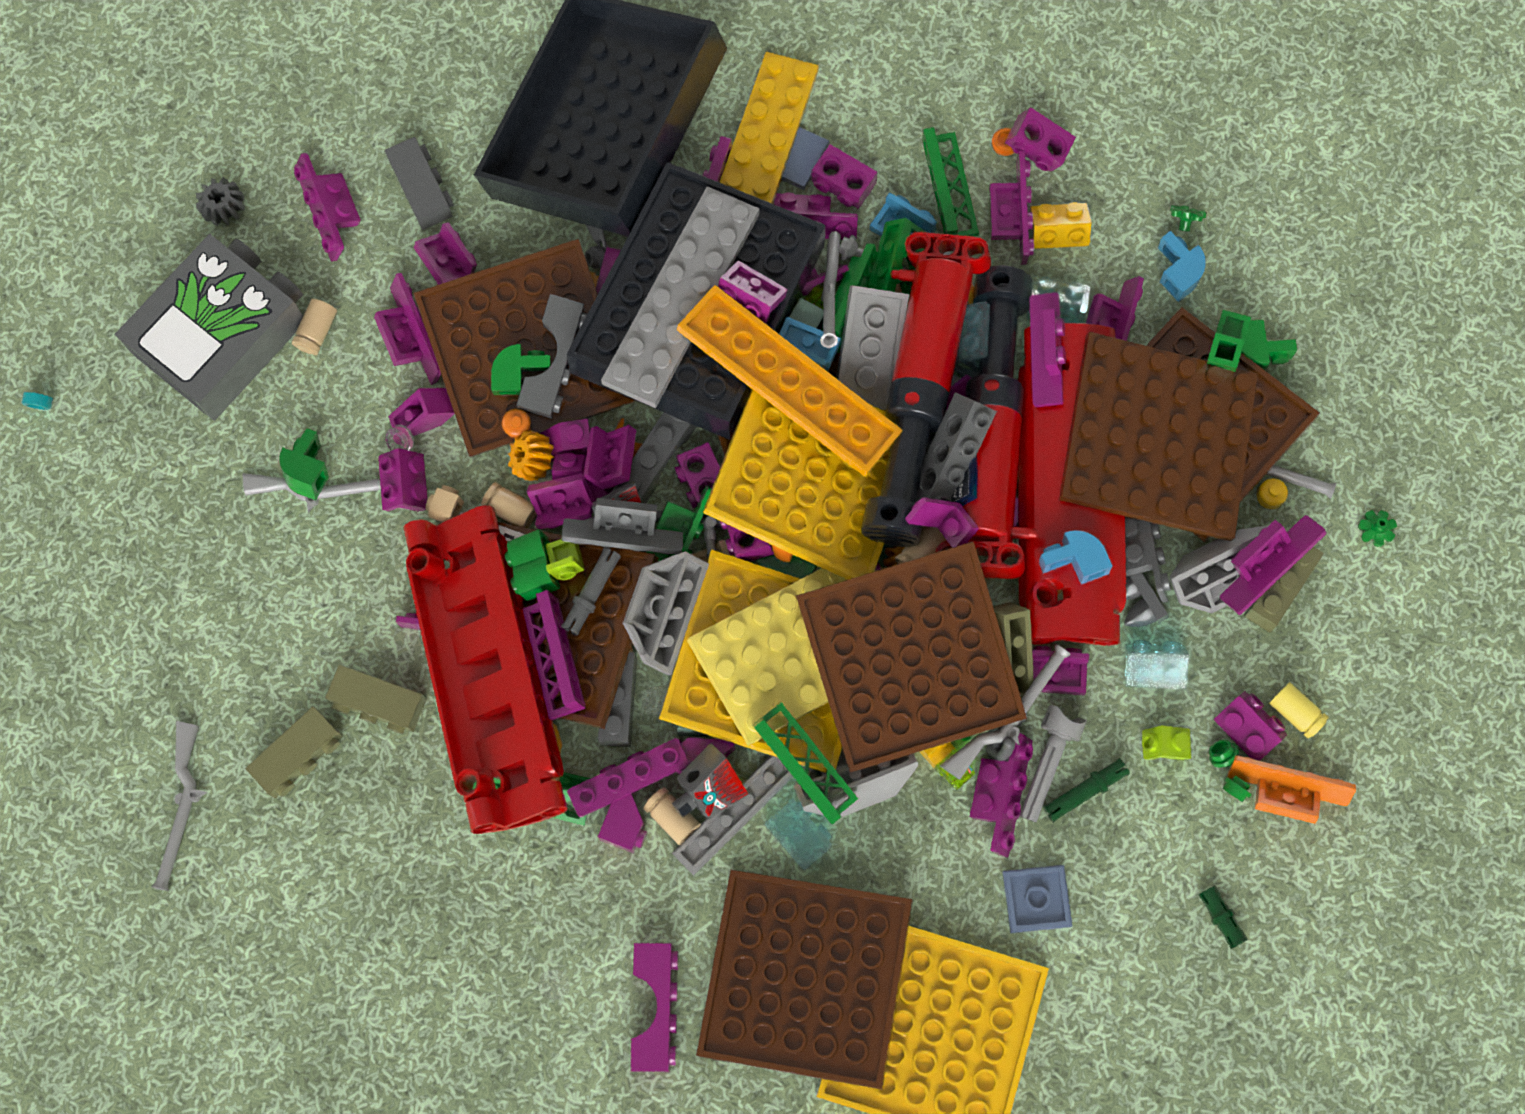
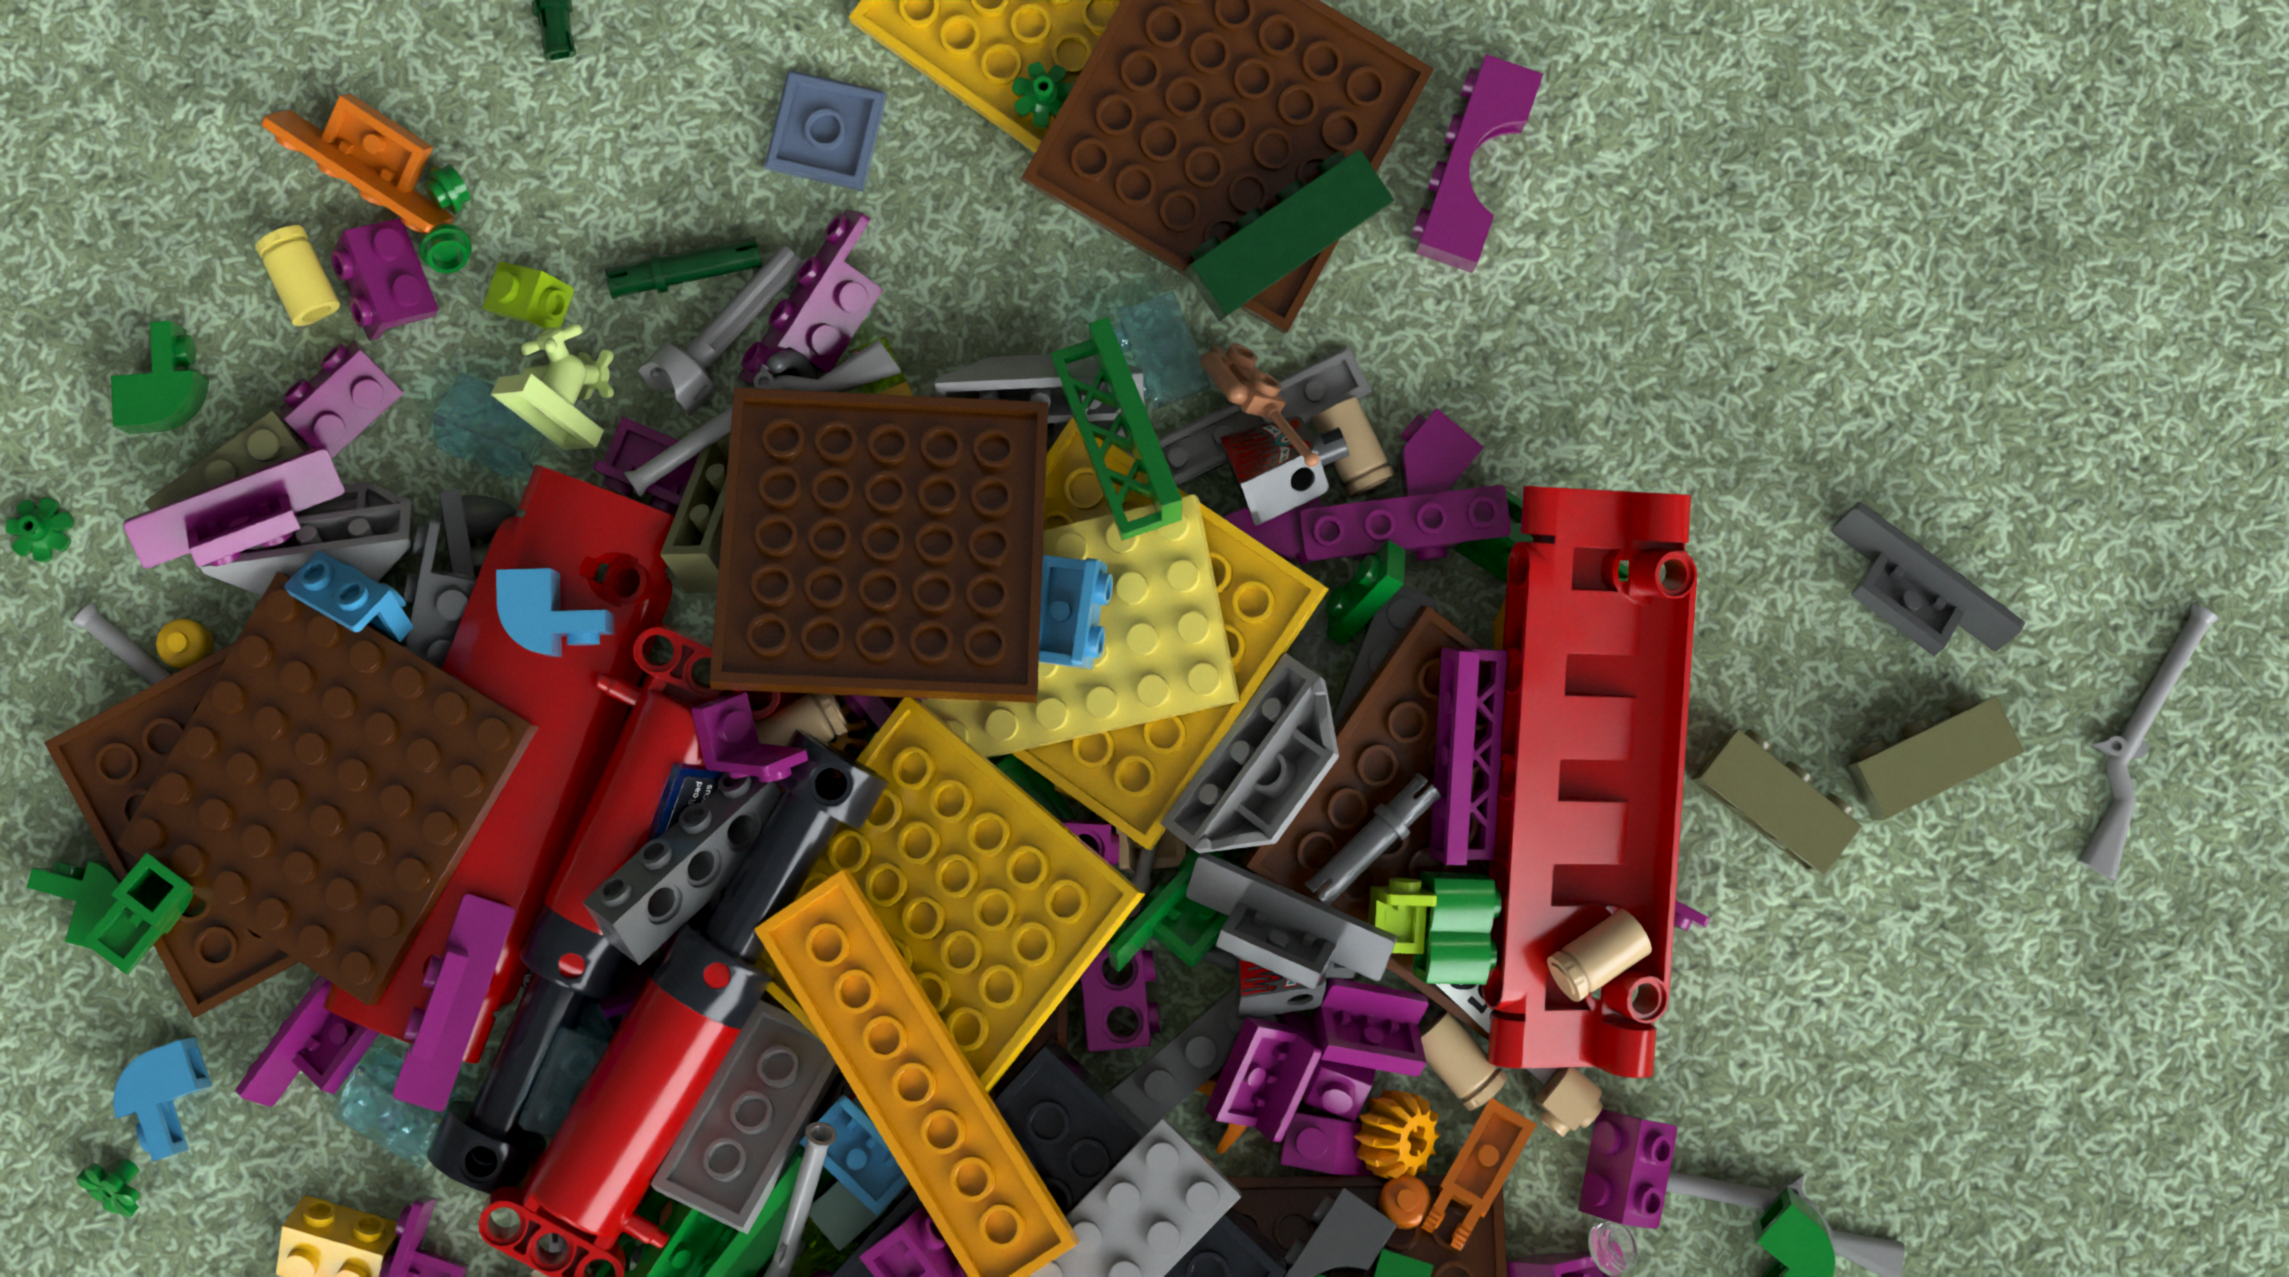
camera: 170 degrees left, 10 degrees up
(328, 842) = (1918, 589): none -> dark grey bracket
(450, 575) = (1599, 955): none -> tan piece
(481, 453) = (1481, 1167): none -> orange hinge
(638, 732) = (1369, 589): none -> green plate
(740, 823) = (1253, 390): none -> nougat piece
(747, 920) = (1288, 234): none -> dark green brick
(795, 654) = (1072, 609): none -> dark azure bracket
(927, 959) = (1041, 93): none -> green plant
(1126, 695) = (548, 392): none -> yellowish green piece
(1190, 532) = (349, 596): none -> dark azure bracket
(1246, 650) = (339, 398): none -> magenta bracket
(1340, 622) = (168, 394): none -> green brick

